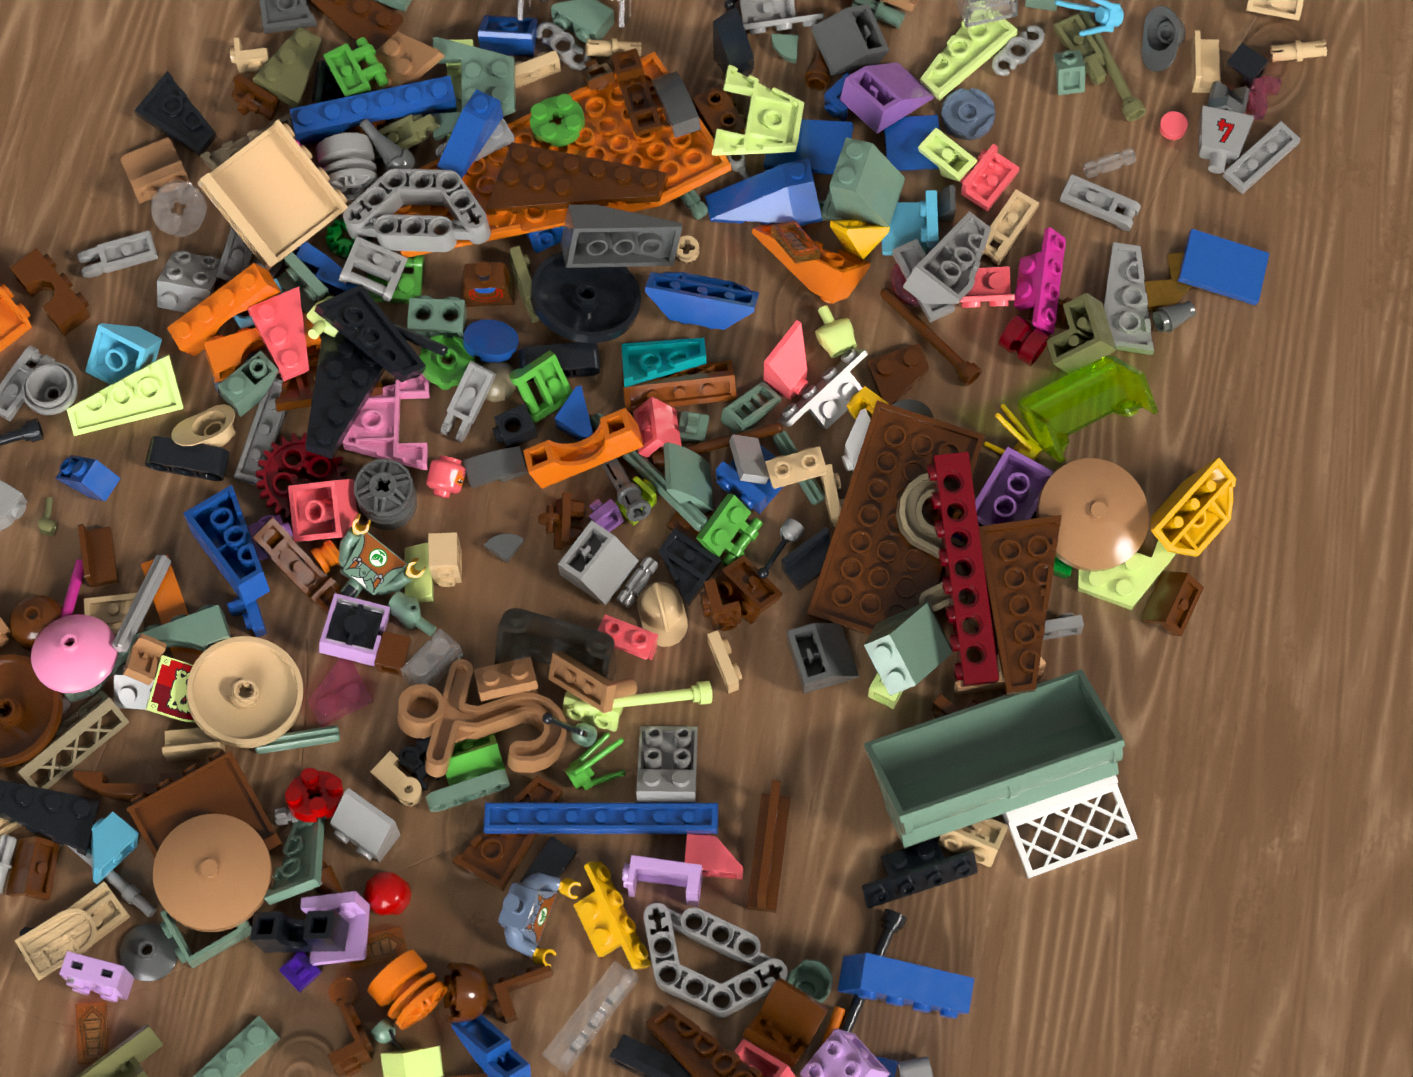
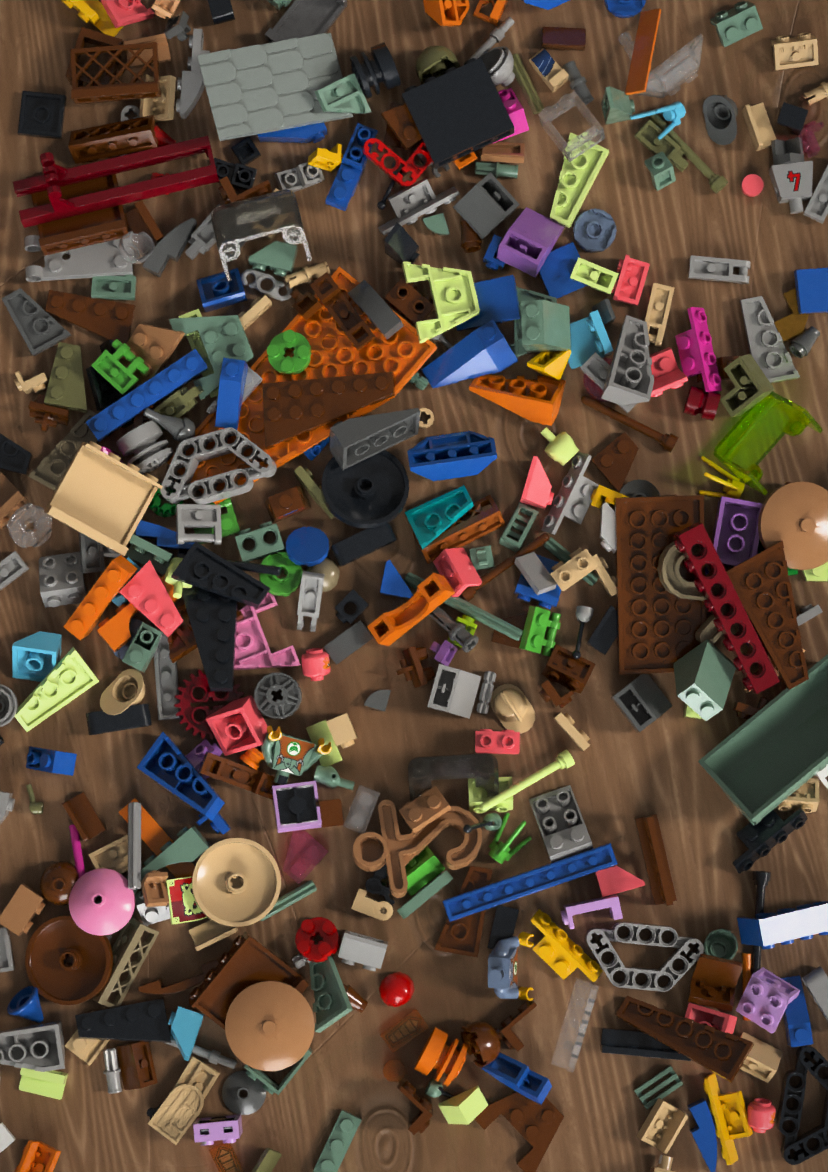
camera: 20 degrees left, 15 degrees up
(300, 971) = (357, 1067): dark purple tile -> none
(318, 933) = (349, 1044): black arch -> none
(355, 912) = (374, 1031): lavender bracket -> none
(549, 381) = (366, 565): bright green plate -> none
(587, 683) = (483, 790): medium nougat piece -> none
(688, 477) = (495, 603): sand green slope -> none
(688, 564) = (518, 666): black wing -> none
(795, 242) = (507, 389): clear orange tile -> none
(1006, 55) = (621, 157): light grey piece -> none
(1109, 162) = (715, 233): clear axle -> none

